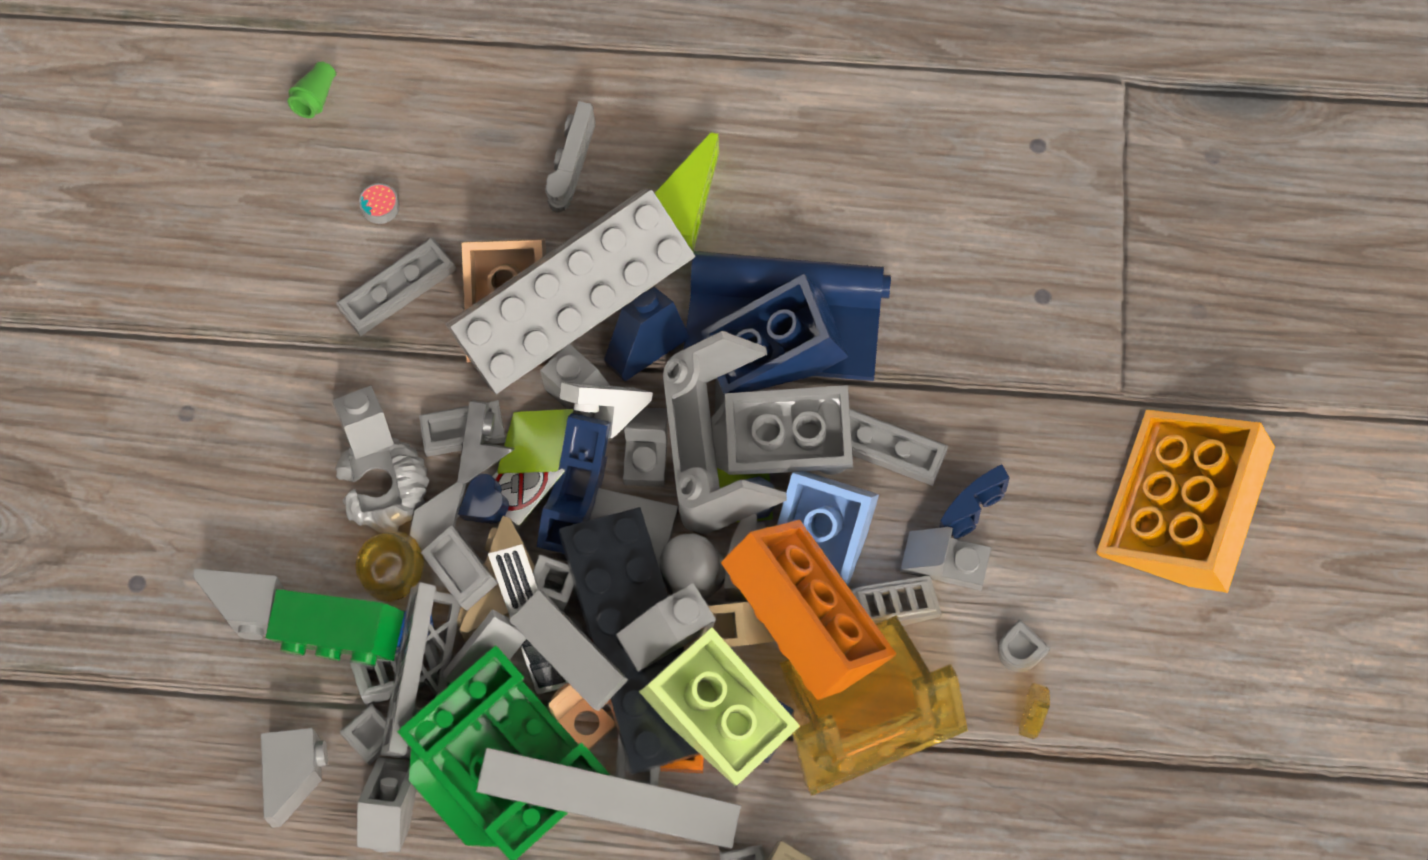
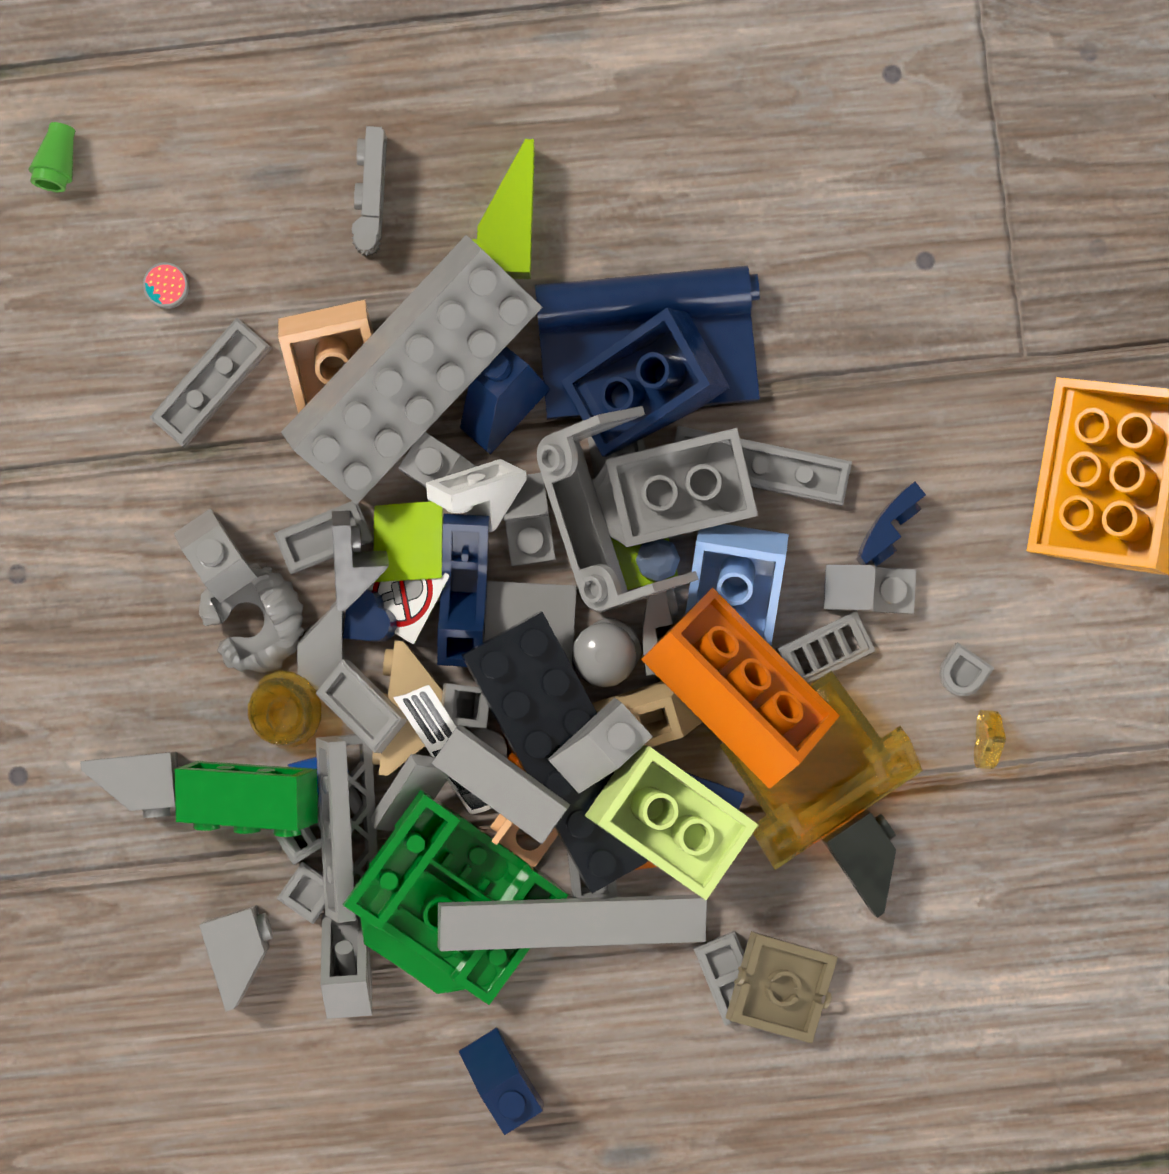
camera: 15 degrees left, 20 degrees up
(898, 795) = (866, 857): none -> pearl dark grey slope

